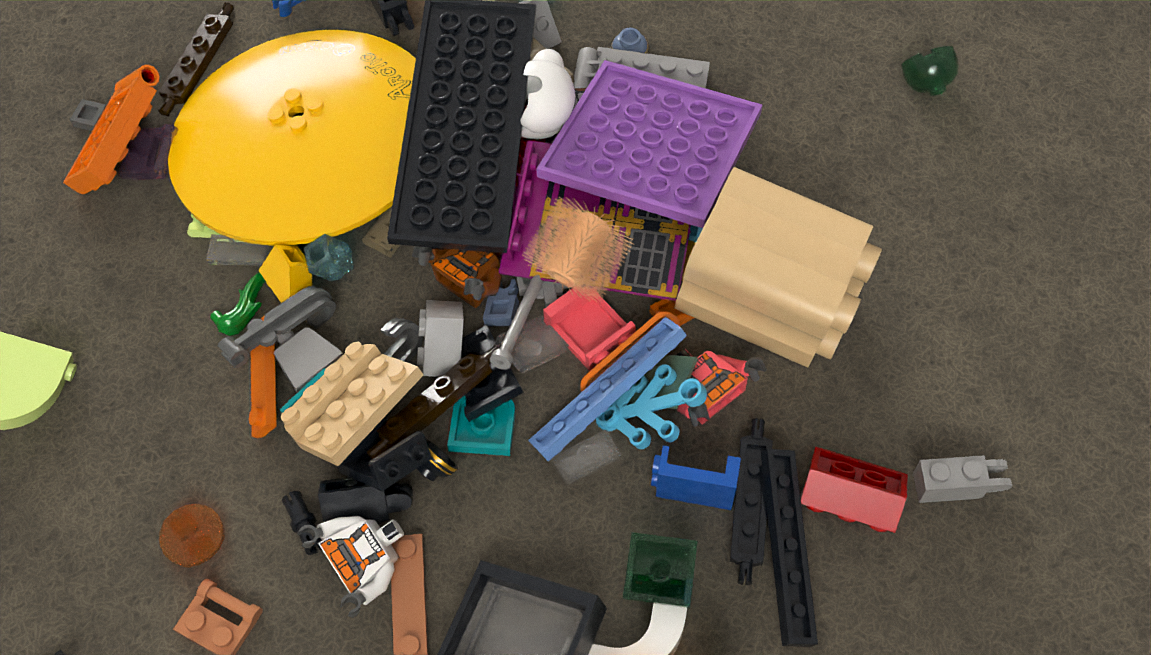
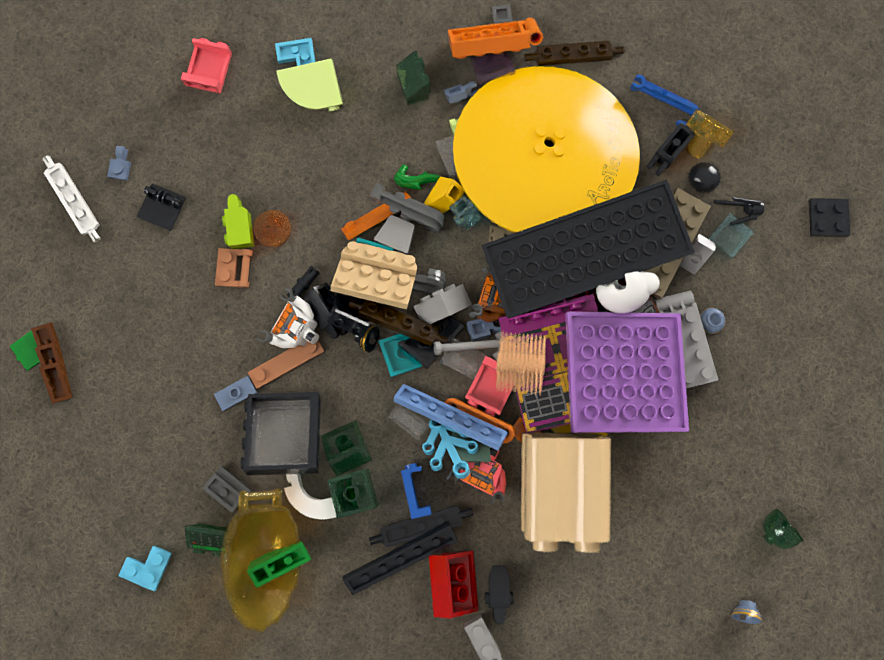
camera: 65 degrees right, 20 degrees up
(100, 246) = (413, 78): none -> clear green slope
(155, 581) = (237, 224): none -> lime hinge
(158, 206) = (459, 92): none -> sand blue plate
(587, 556) = (346, 448): none -> clear green slope
(892, 430) = (499, 593): none -> black hinge
(1024, 144) = (749, 609): none -> sand blue piece

